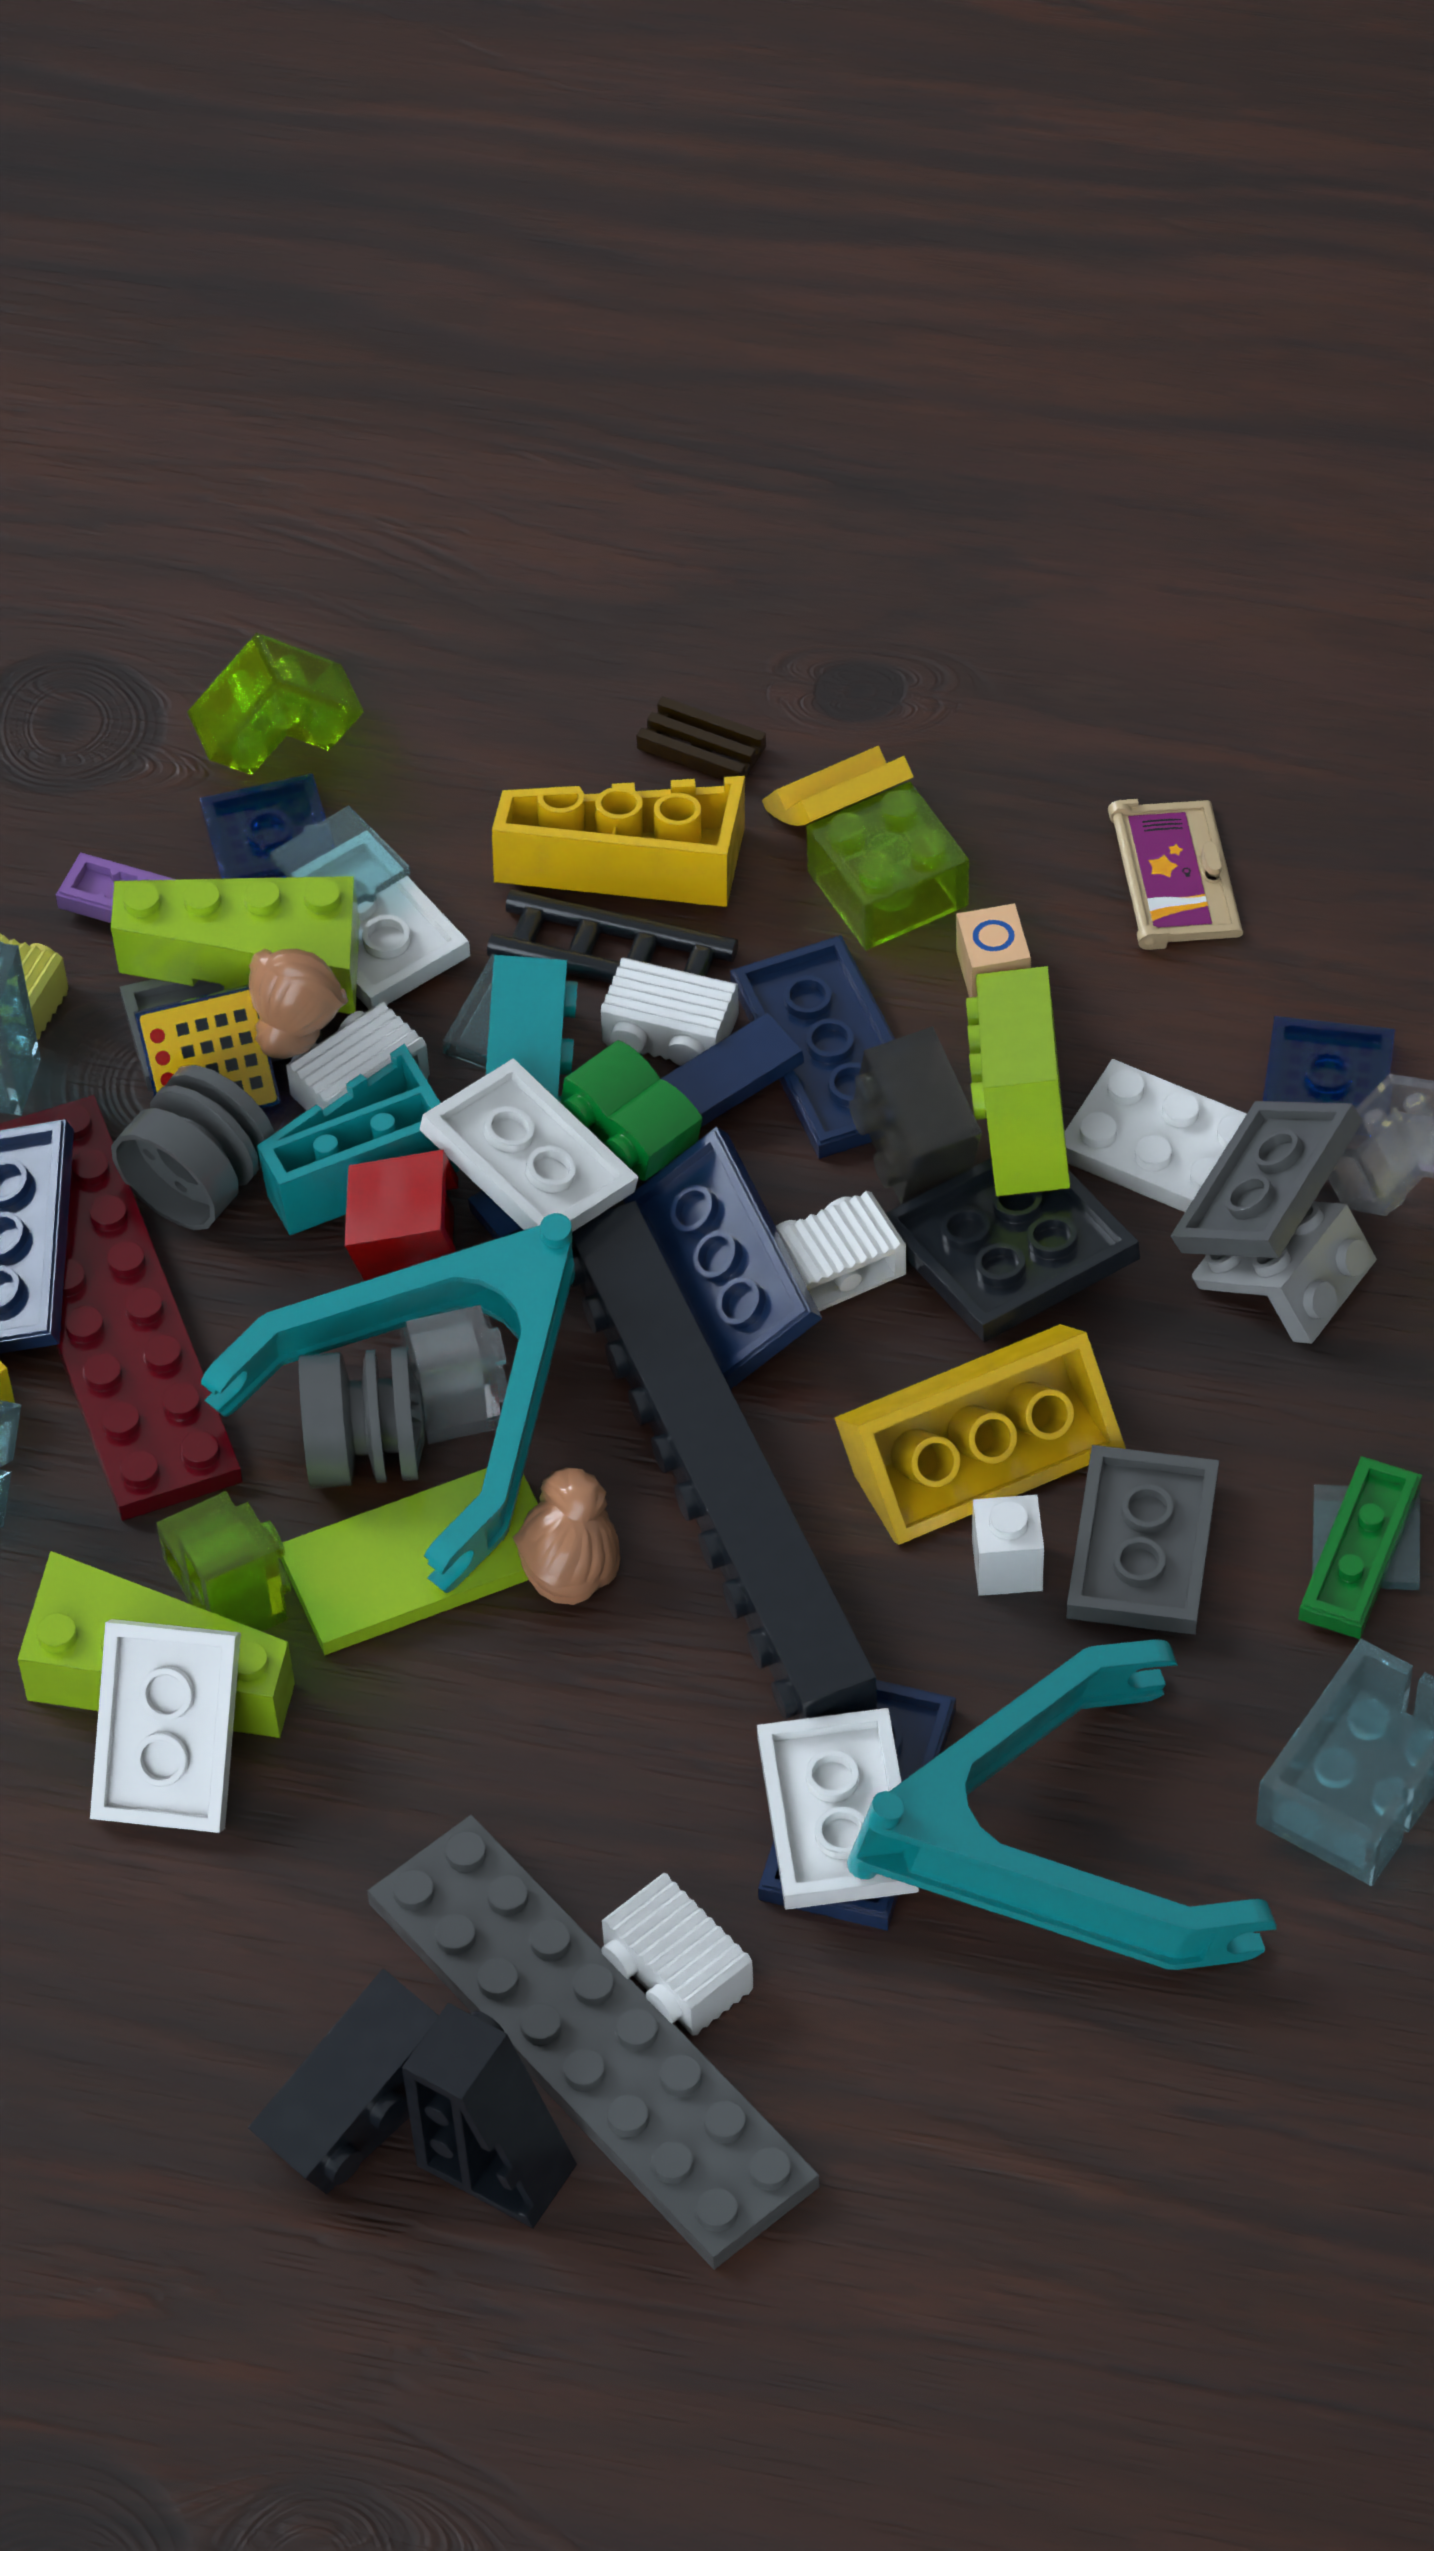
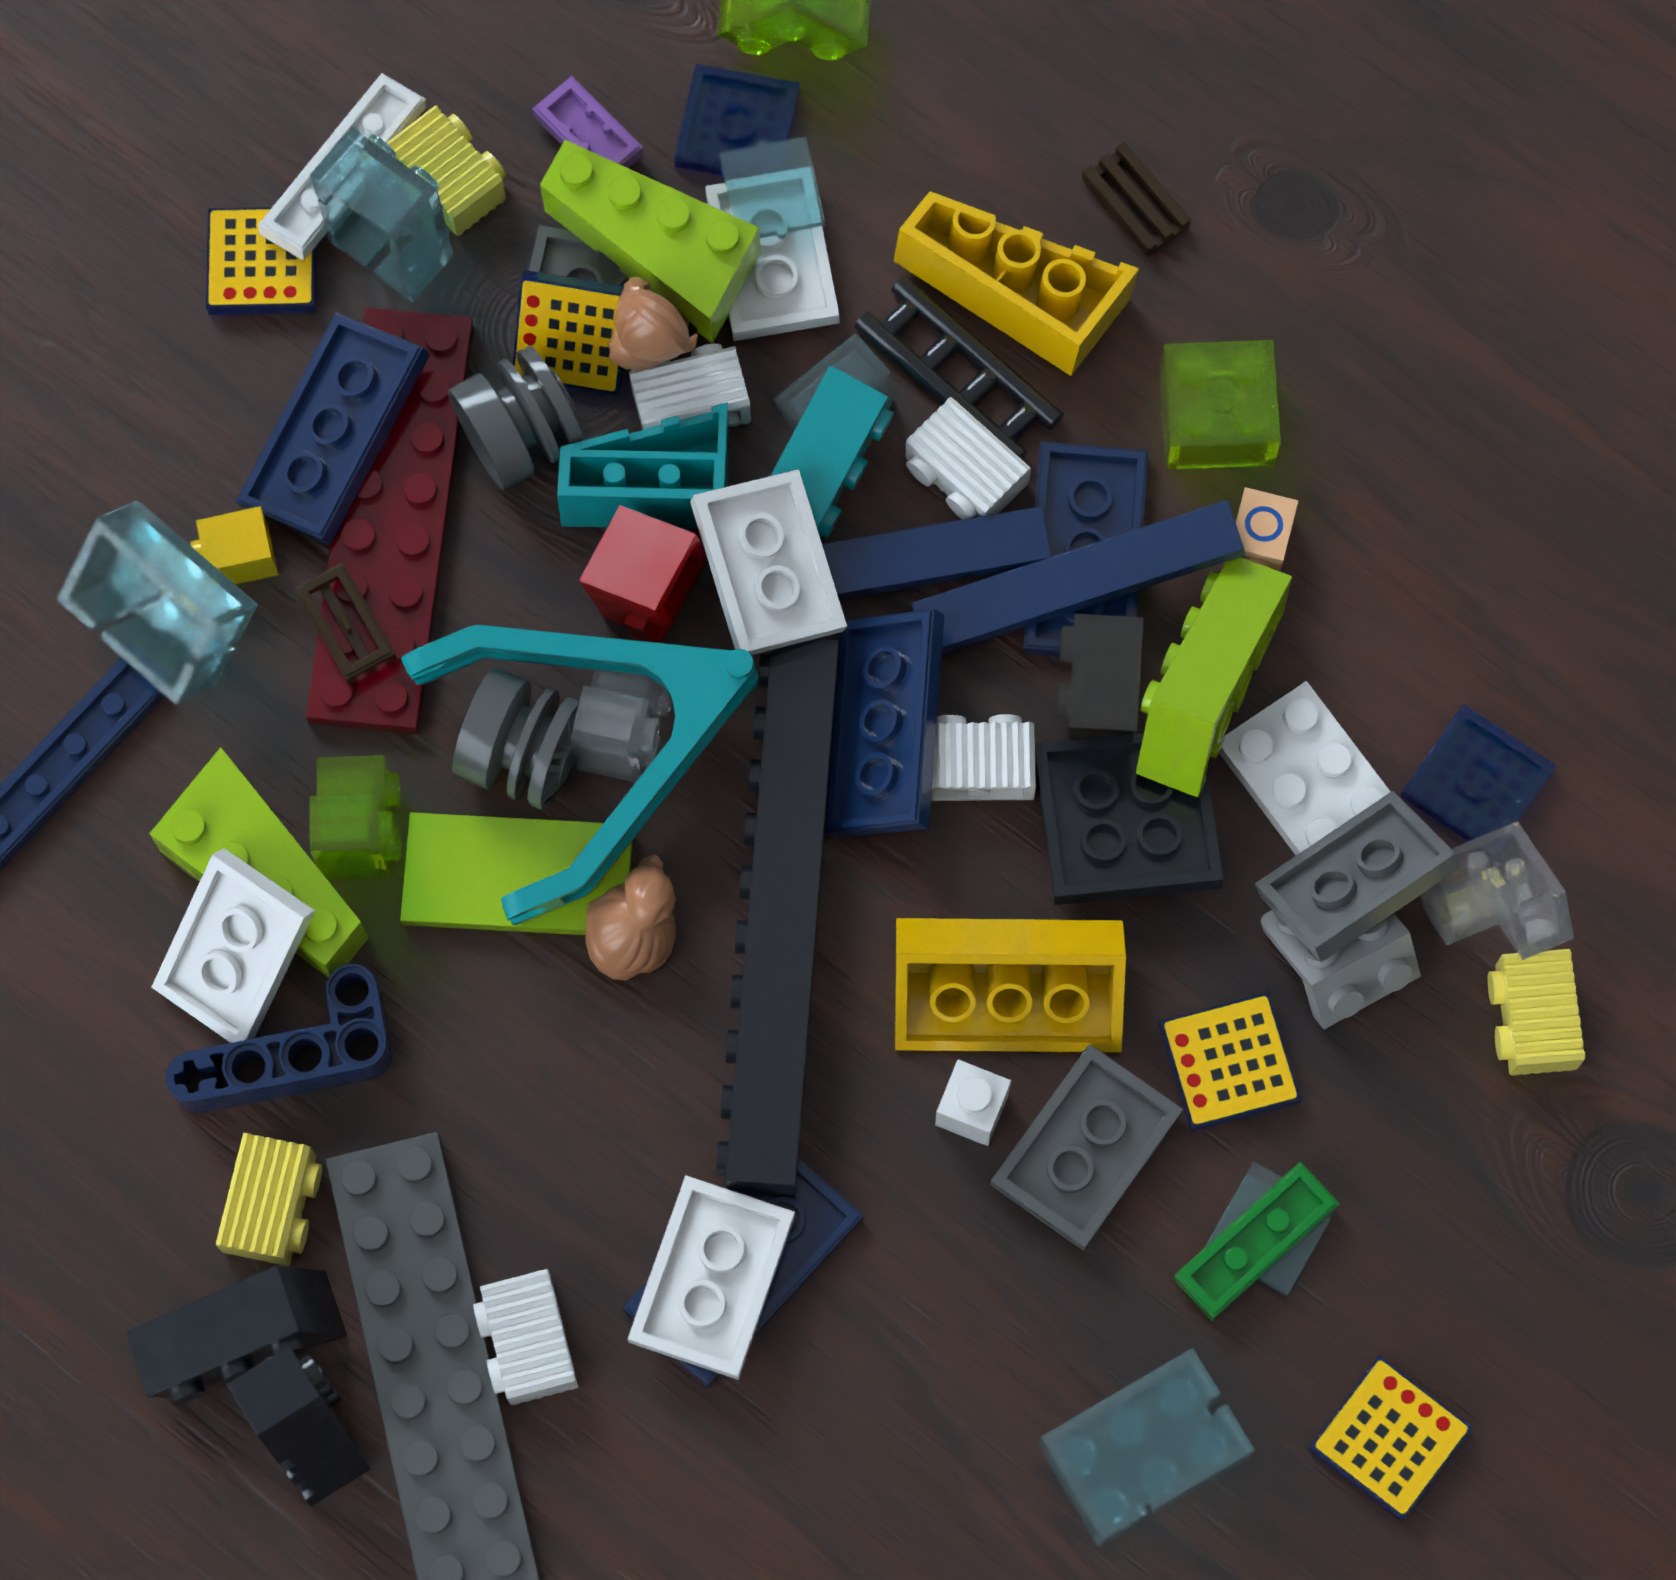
camera: 25 degrees right, 20 degrees up
(150, 1425) = (366, 662): none -> dark brown tile
(201, 1867) = (281, 1050): none -> dark blue beam
(325, 1946) = (268, 1200): none -> light yellow brick
(632, 1109) = (874, 557): green brick -> none
(829, 1063) = (1086, 576): none -> dark blue tile
(836, 787) = (1216, 310): yellow slope -> none
(933, 1841) = (756, 1360): teal piece -> none
(1167, 863) = (1463, 497): door -> none
(1237, 1409) = (1229, 1062): none -> yellow tile

